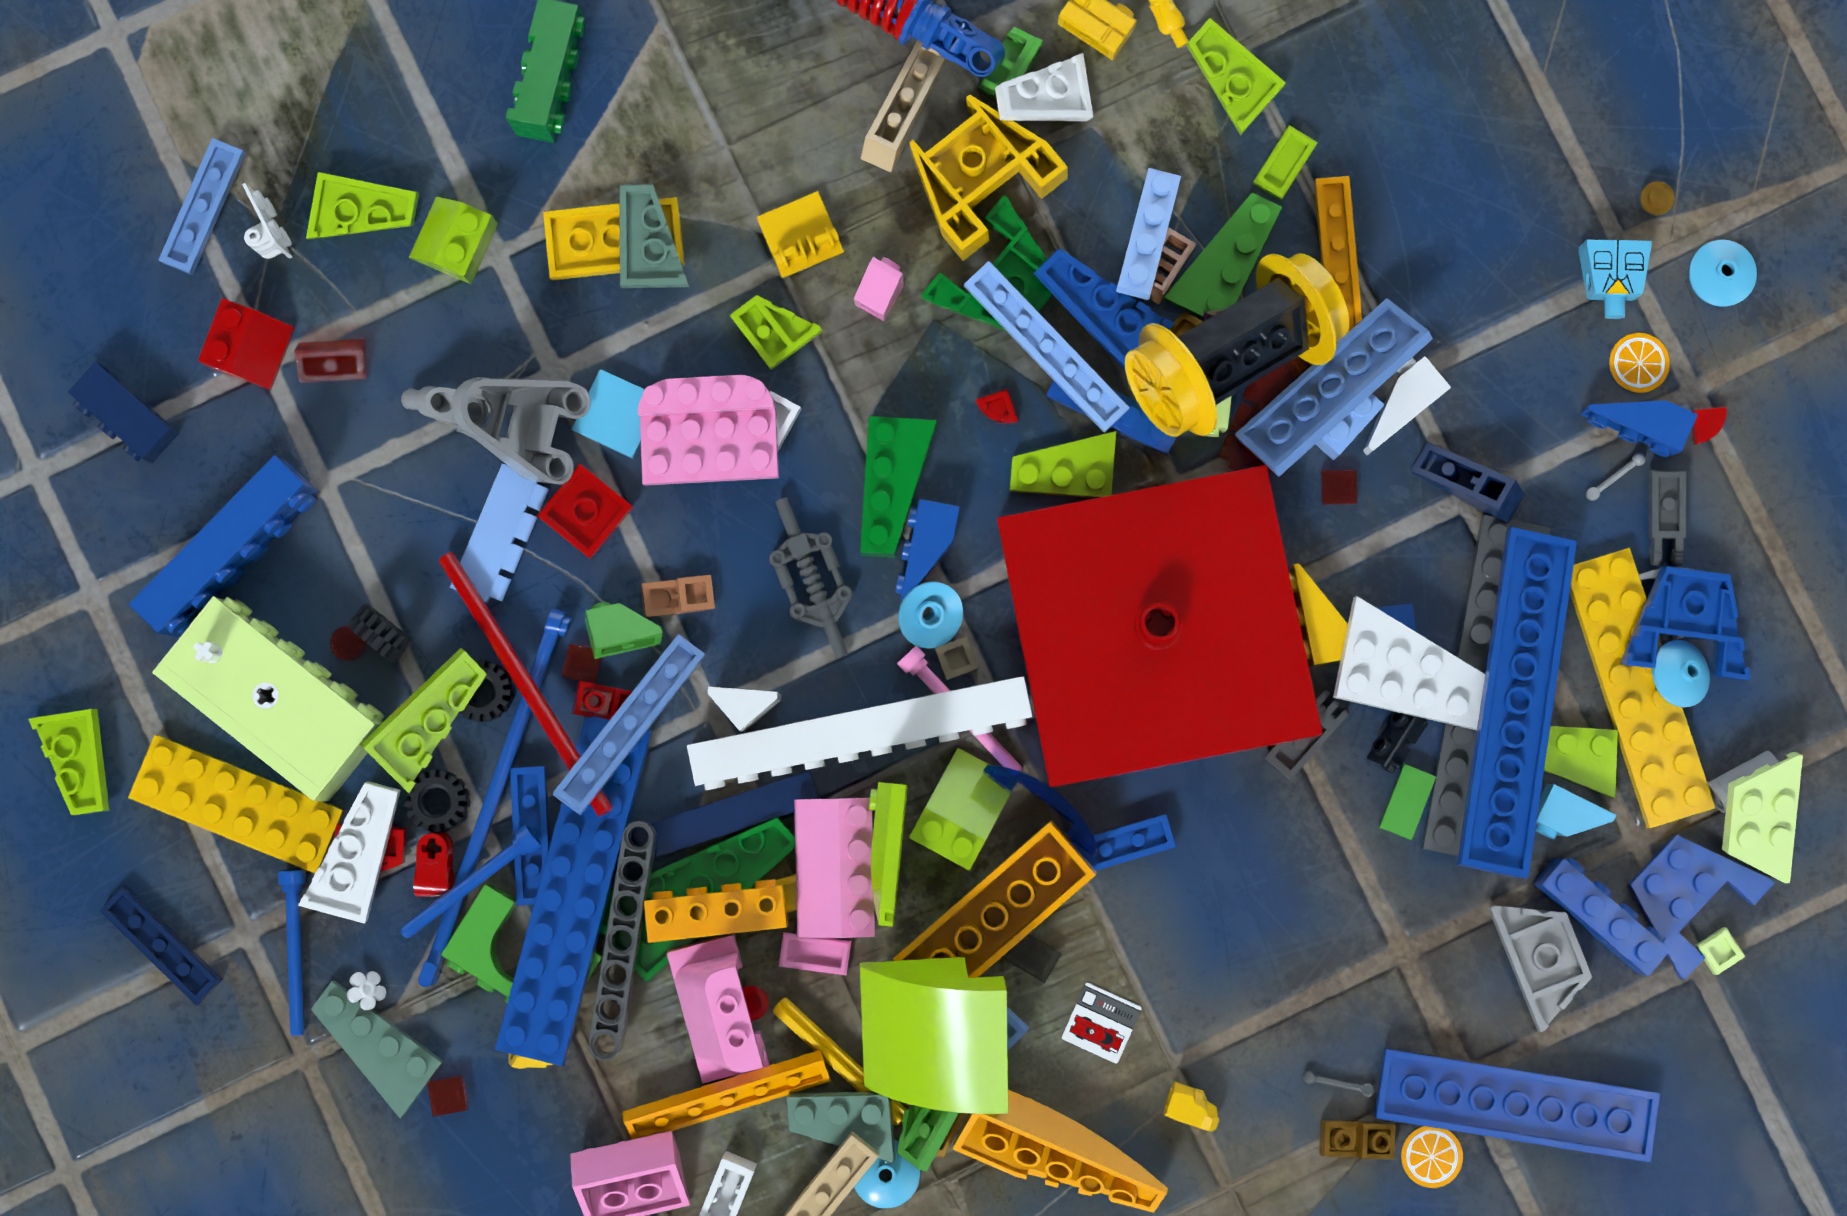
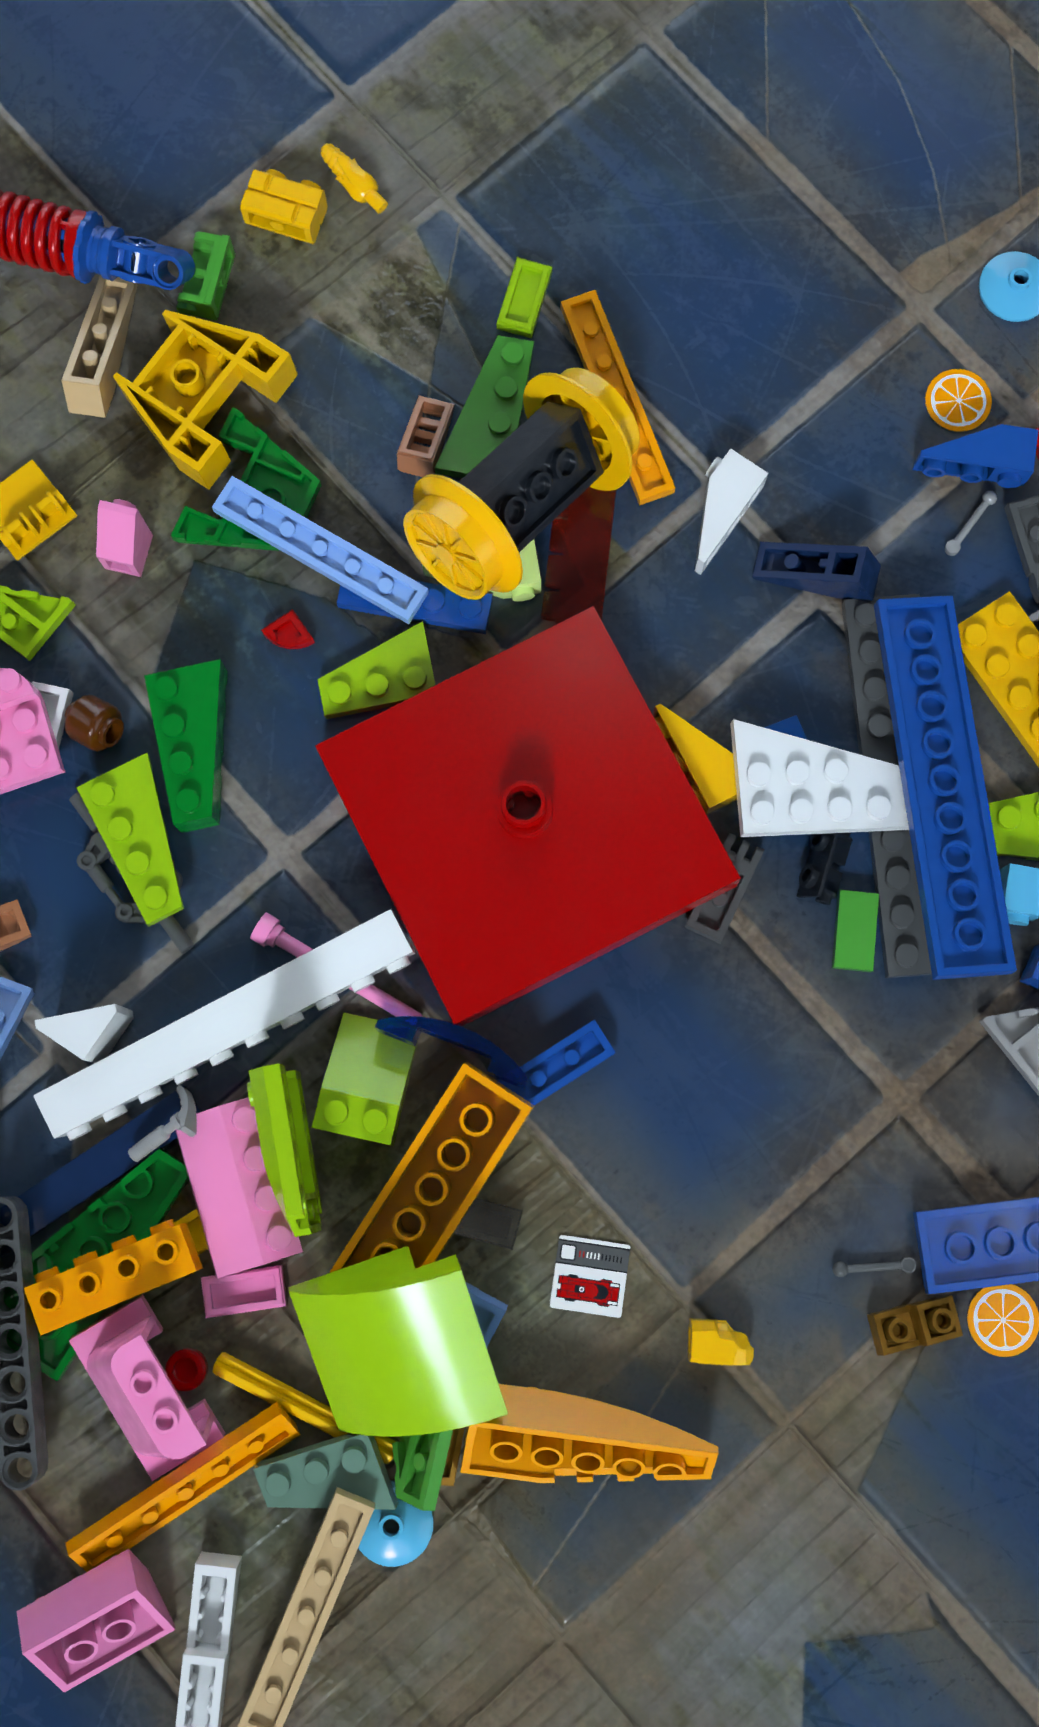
camera: 20 degrees left, 5 degrees down
(808, 801) = (183, 1120): none -> light grey piece
(813, 441) = (93, 722): none -> reddish brown head
(824, 546) = (132, 826): none -> lime wing
(931, 538) = (252, 791): blue slope -> none
(940, 624) = (289, 879): medium azure dish -> none
(956, 658) = (315, 914): dark tan tile -> none
(1048, 94) = (250, 291): white wing -> none
(1104, 313) = (358, 490): blue wing -> none
(1148, 234) = (398, 405): light blue plate -> none
(1234, 74) = (444, 221): lime wing -> none
(1333, 390) = (642, 506): medium blue plate -> none
(1338, 487) = (680, 615): clear red tile -> none
(1345, 432) = (667, 541): light blue brick -> none
(1614, 272) = (903, 311): medium azure torso -> none
(1657, 198) = (923, 228): pearl gold plate -> none

